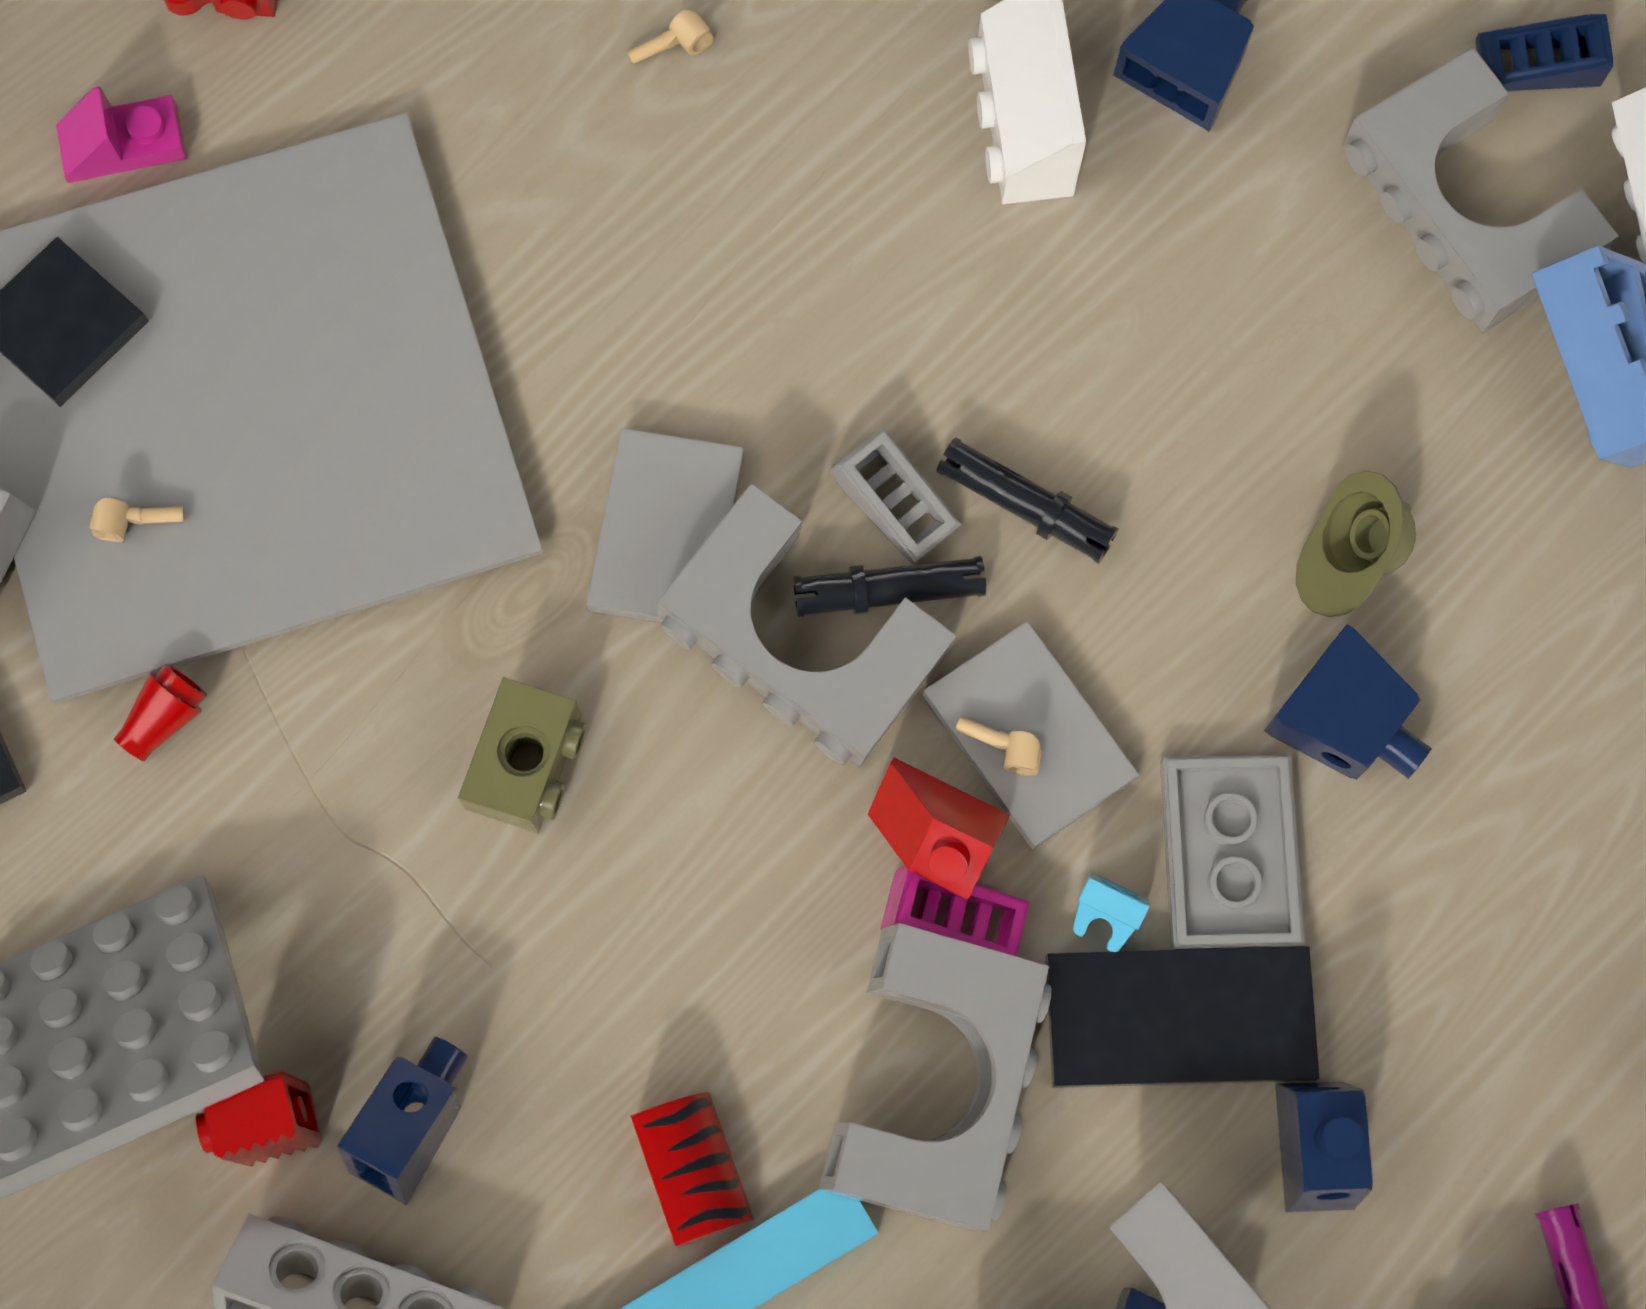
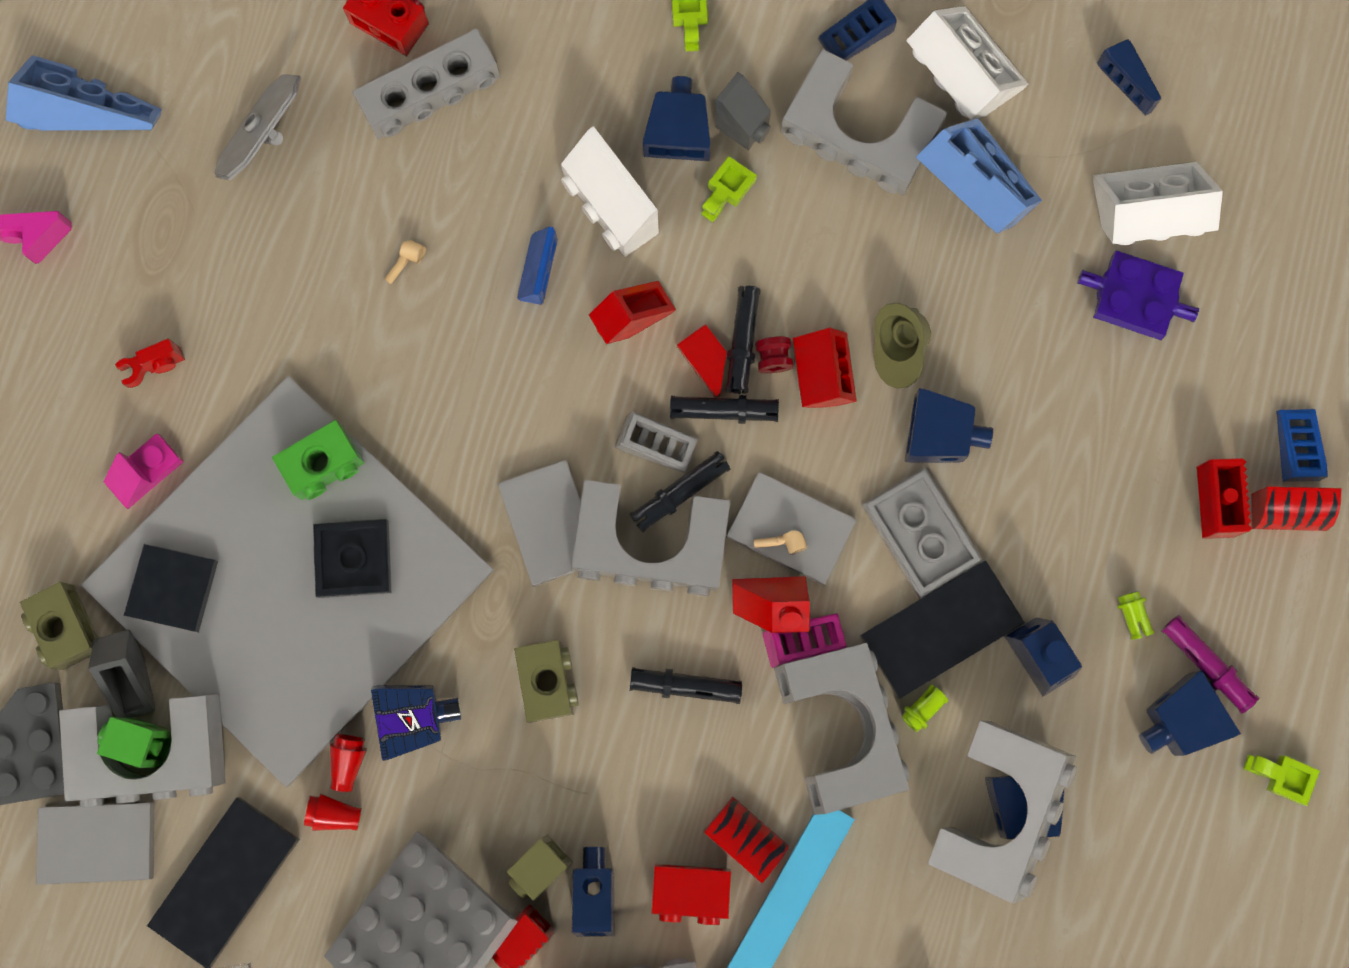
camera: 25 degrees left, 5 degrees up
(91, 777) = (330, 814): none -> red cone
(113, 515) = (262, 675): tan hand -> none
(290, 696) = (410, 717): none -> torso
(343, 420) = (352, 558): none -> black tile
(347, 233) = (297, 461): none -> bright green brick
(347, 1026) = (538, 868): none -> olive brick
(558, 1199) = (691, 893): none -> red brick
(713, 867) = (684, 685): none -> black pin
(865, 149) = (538, 266): none -> blue slope
(965, 281) = (631, 311): none -> red slope
(1041, 411) = (705, 357): none -> red tile
(1084, 1123) = (924, 708): none -> lime pin
(1099, 432) = (743, 337): none -> black pin
(1113, 903) = (877, 592): medium azure tile -> none
(1148, 459) = (774, 355): none -> dark red wheel
(1215, 522) = (824, 368): none -> red brick
(1218, 175) = (728, 185): none -> lime plate
(1297, 78) = (742, 113): none -> dark grey slope
(1506, 1158) = (1135, 612): none -> lime pin

